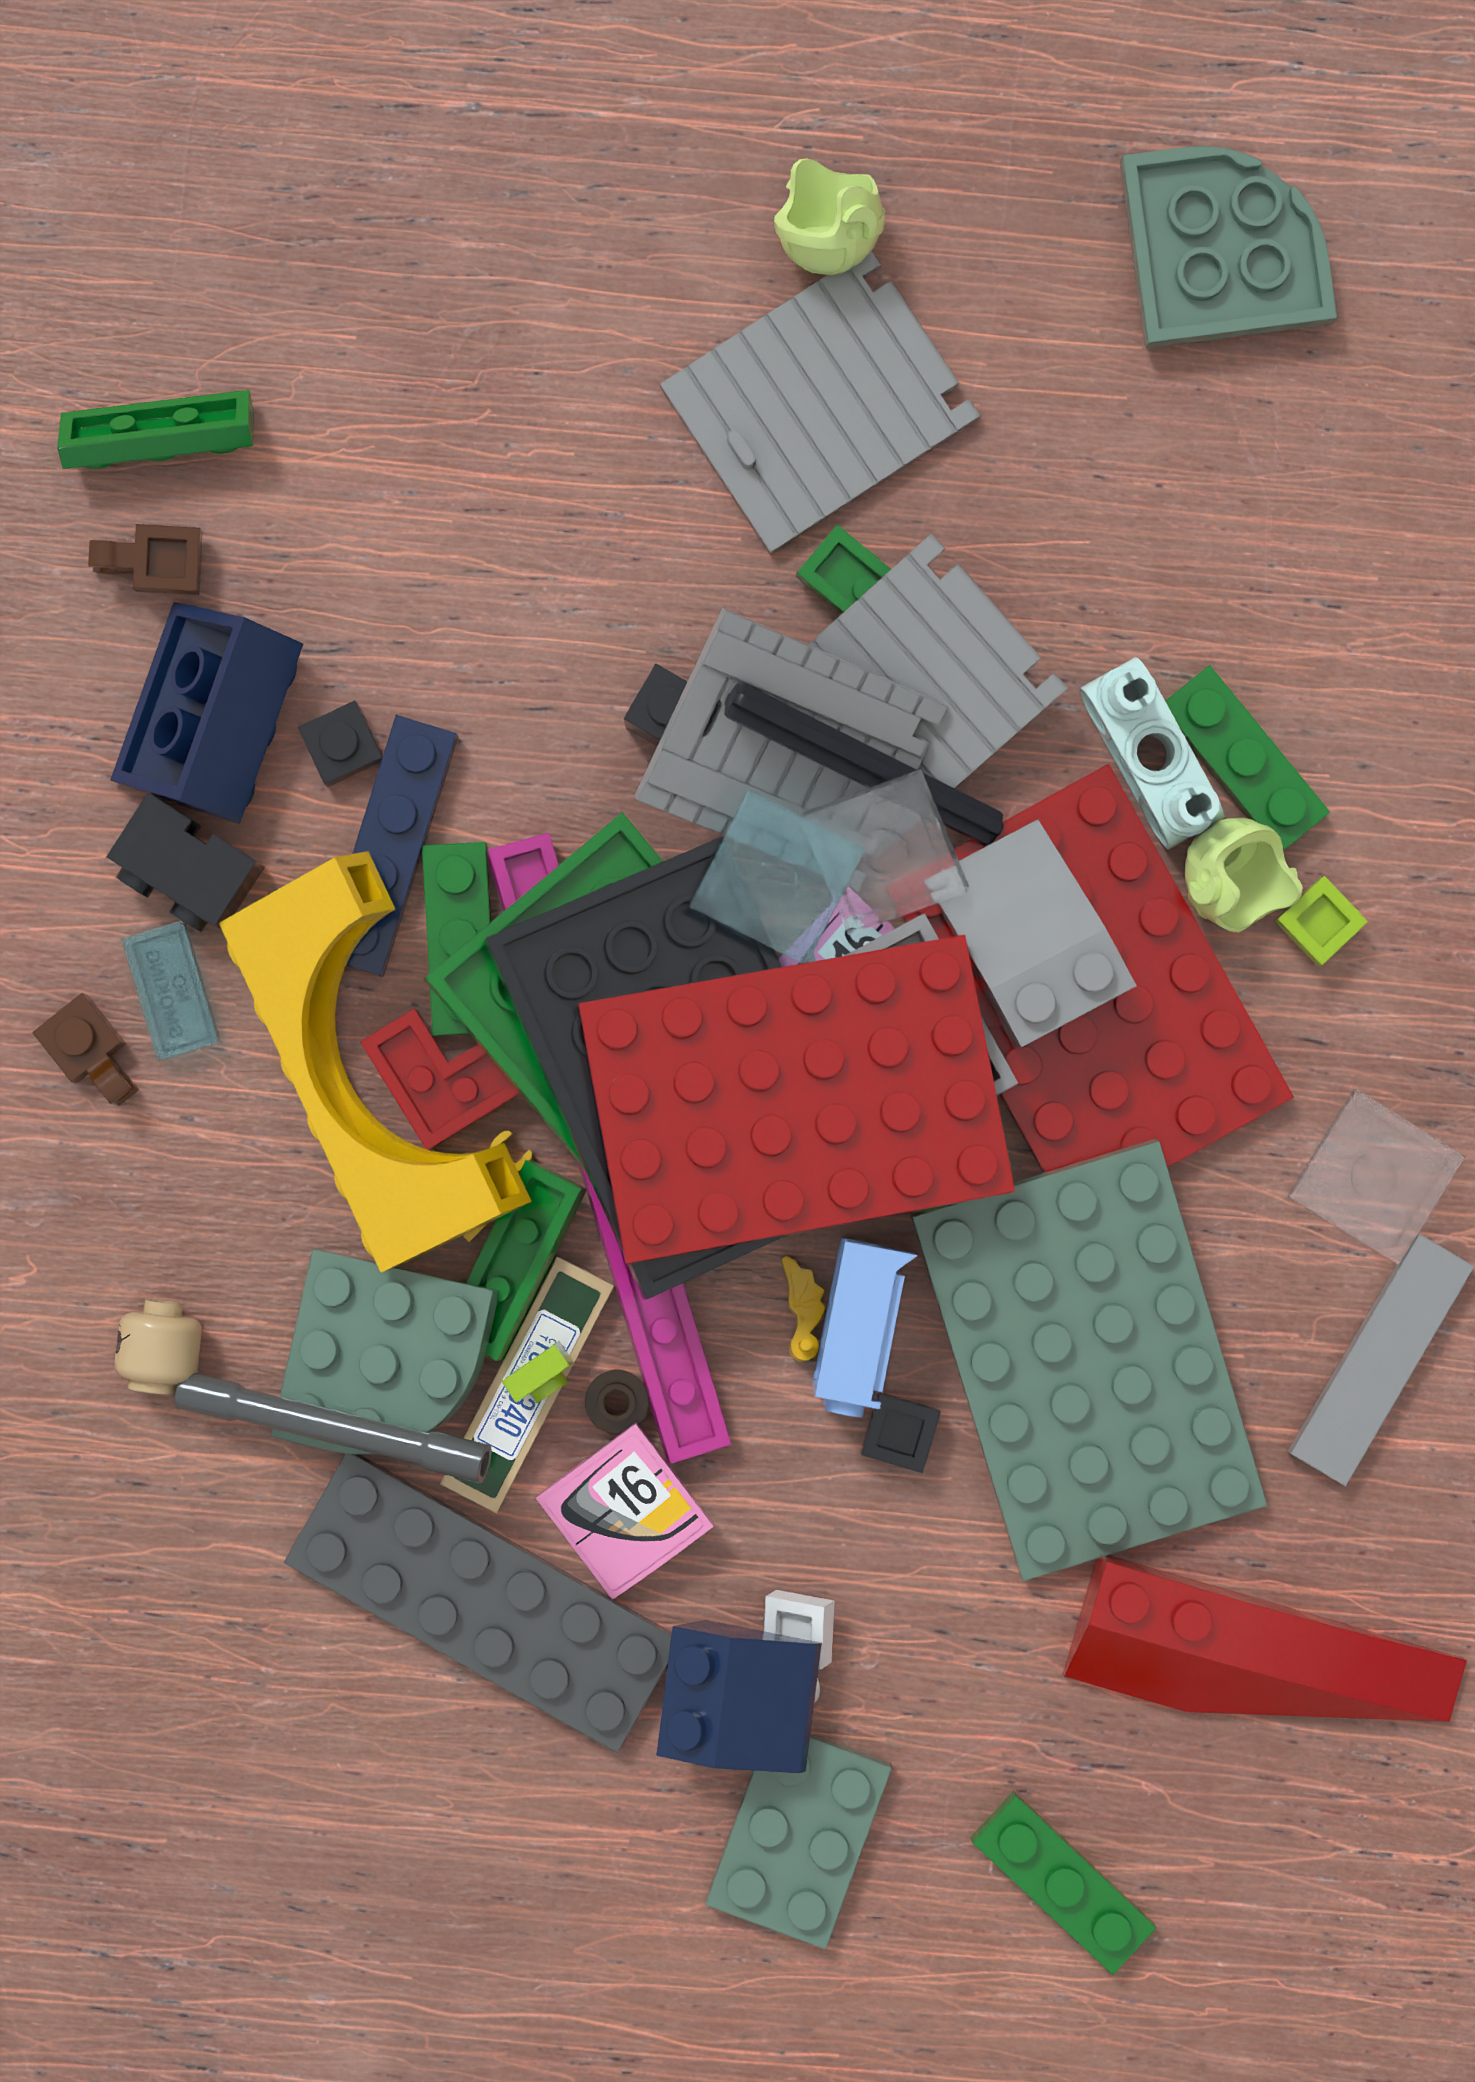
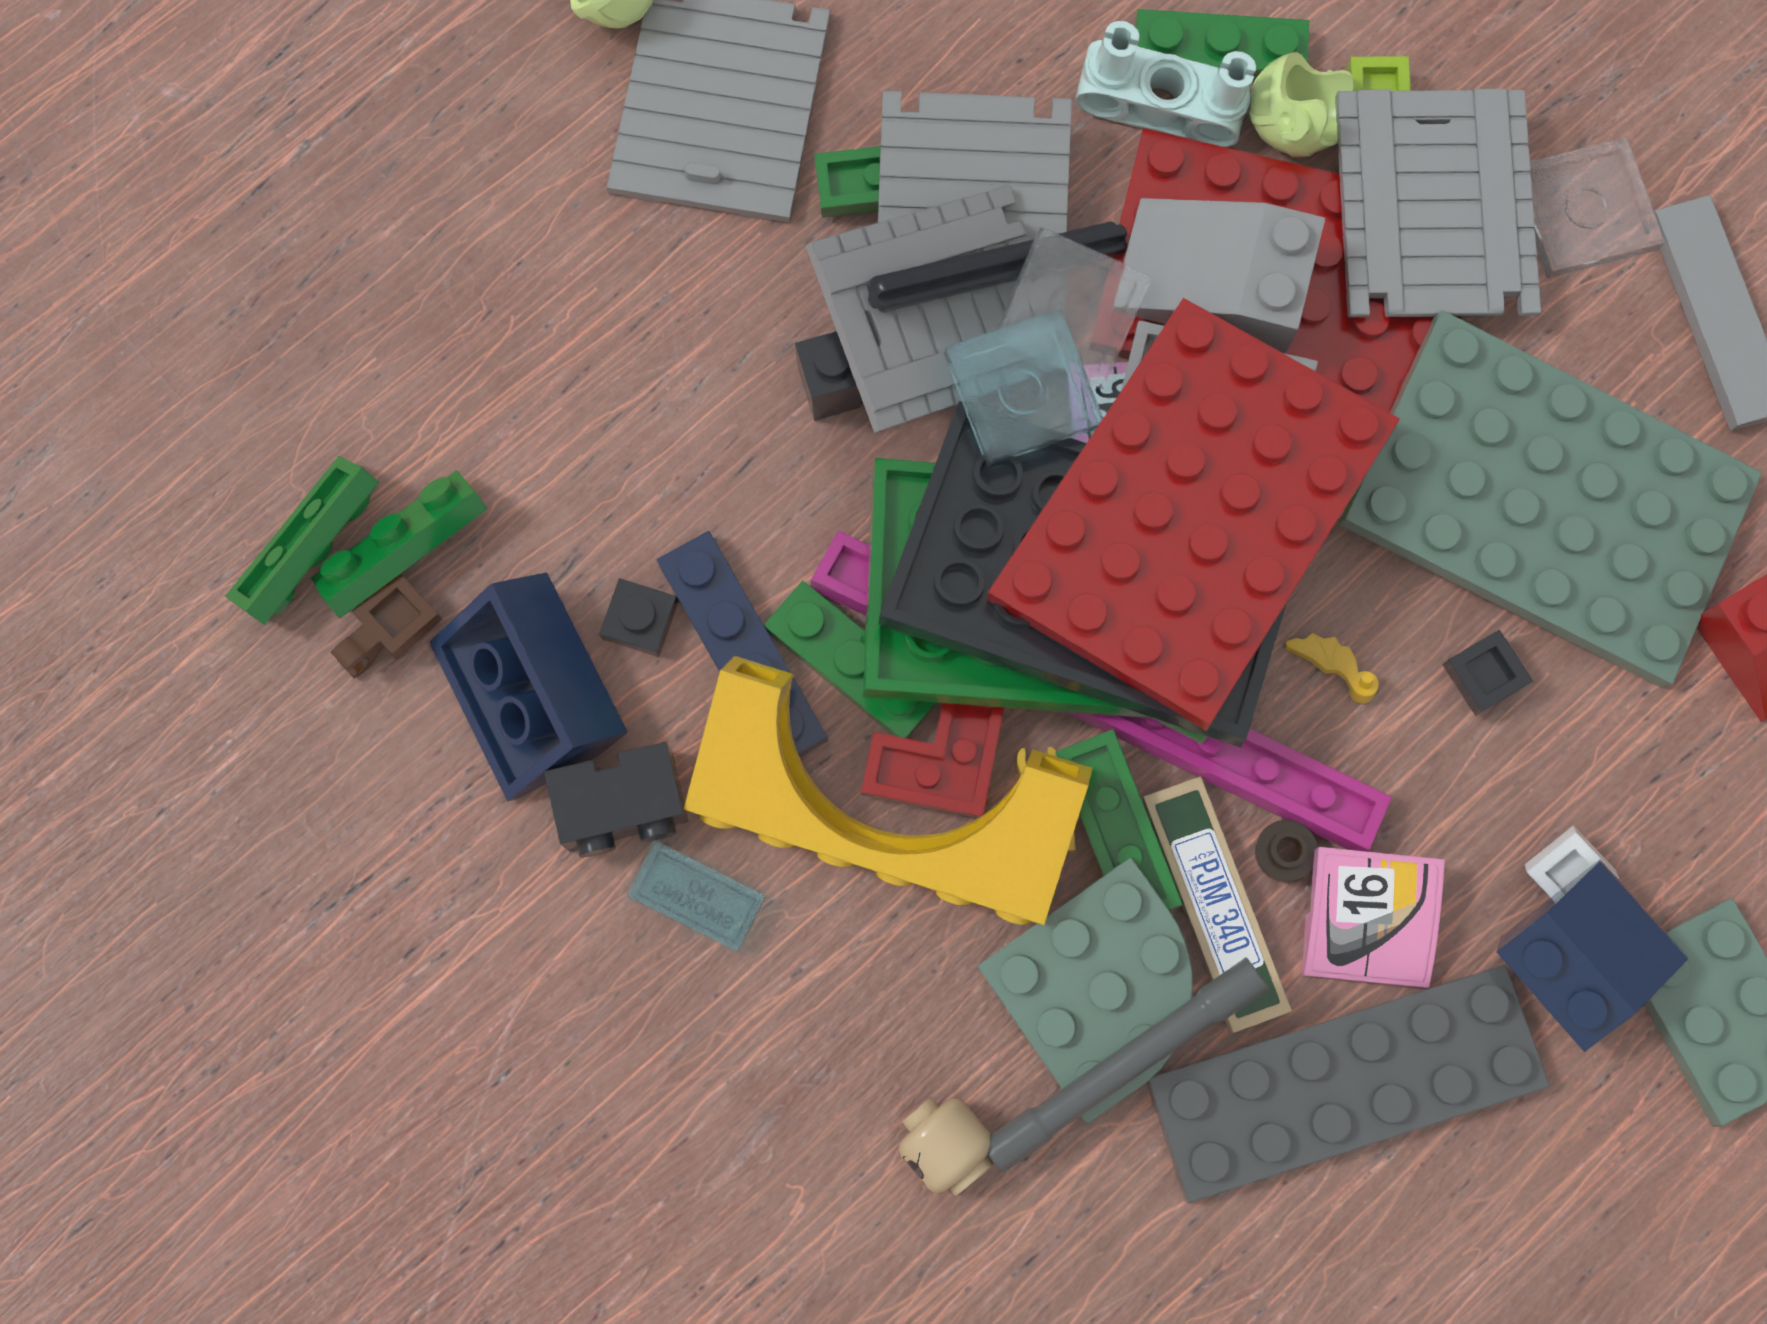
camera: 40 degrees left, 10 degrees down
(83, 1044) = (673, 993): reddish brown plate -> none
(222, 506) = (397, 543): none -> green plate
(540, 1375) = (1221, 880): lime plate -> none
(859, 1326) = (1389, 623): light blue window -> none
(1255, 1056) = (1437, 202): none -> light grey door

